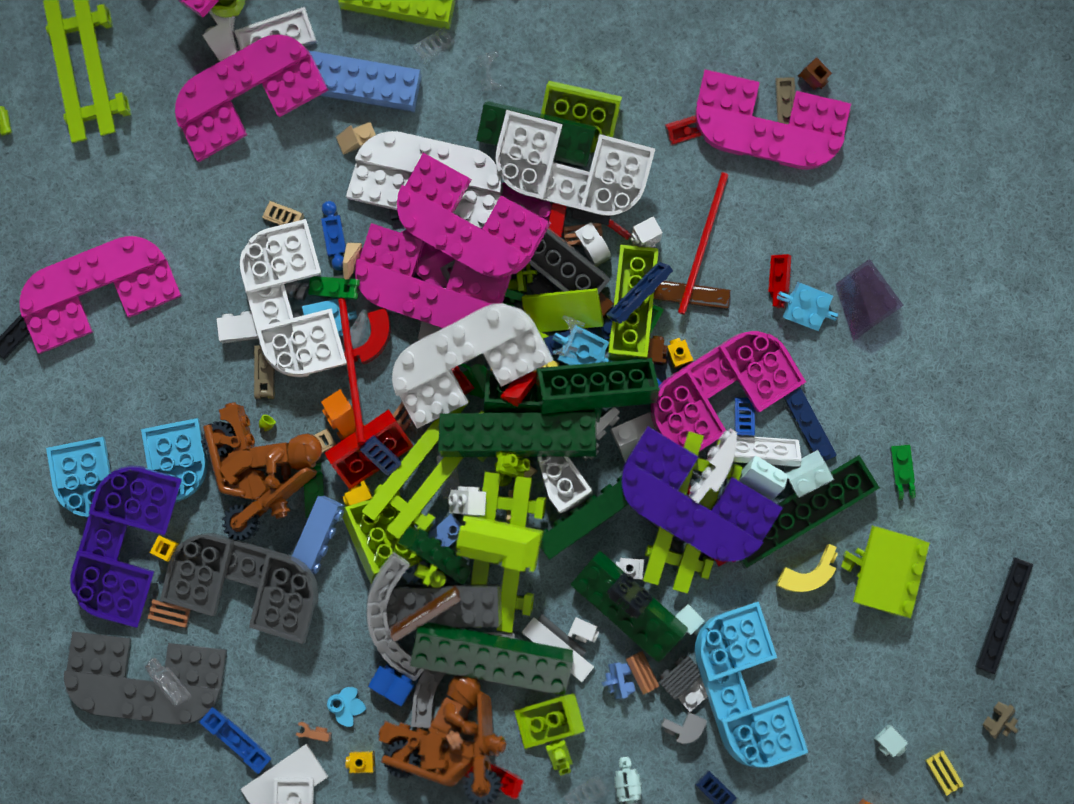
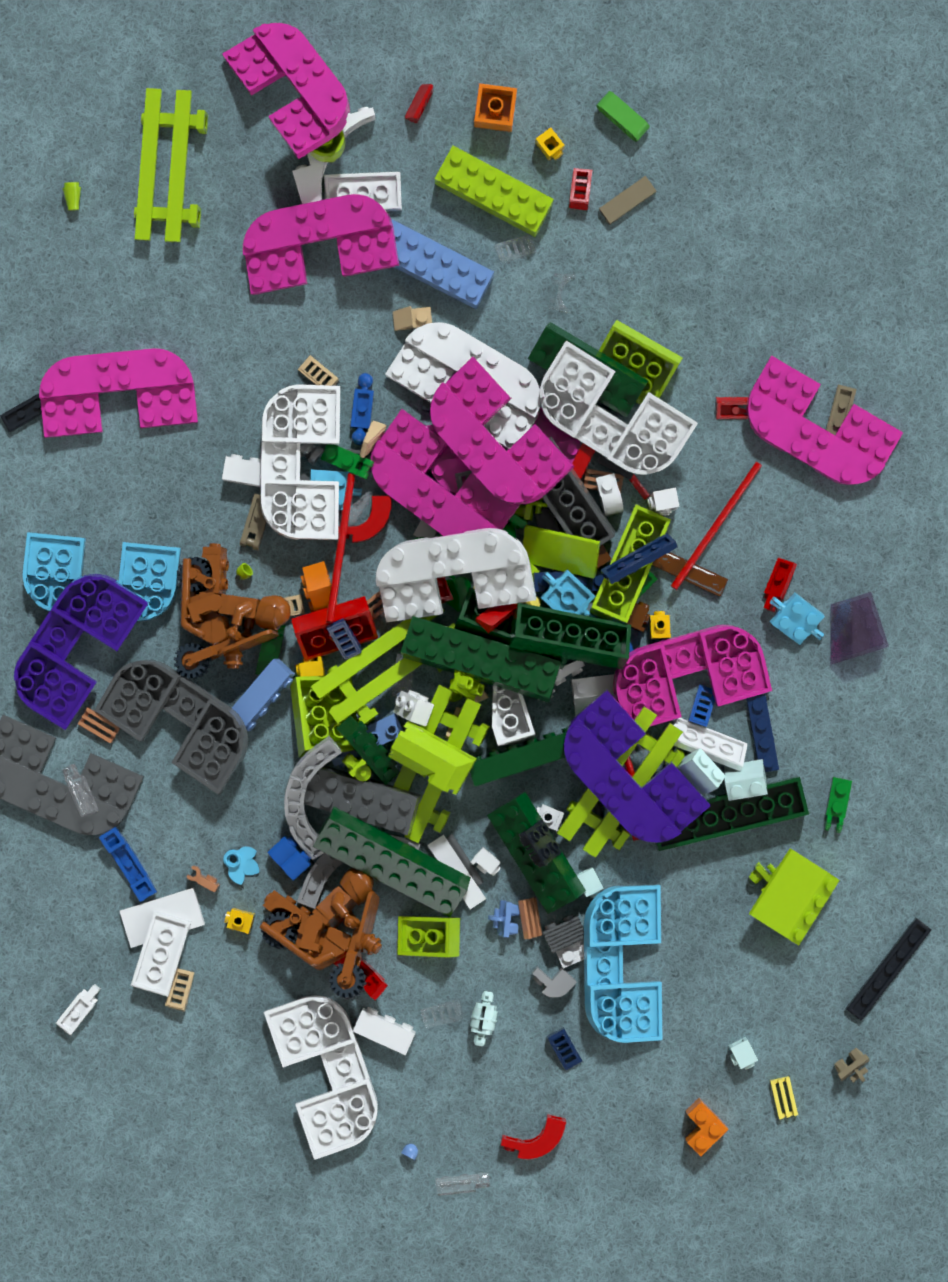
camera: 10 degrees right, 5 degrees up
(164, 548) = (112, 663): yellow brick -> none
(425, 614) = (341, 802): reddish brown tile -> none
(454, 740) = (334, 929): nougat plate -> none
(559, 756) = (428, 972): lime hips -> none
(572, 324) = (565, 569): clear piece -> none
(722, 459) = (666, 743): white slope -> none
(815, 74) = (877, 393): reddish brown brick -> none
(819, 576) = (717, 880): light yellow arch -> none

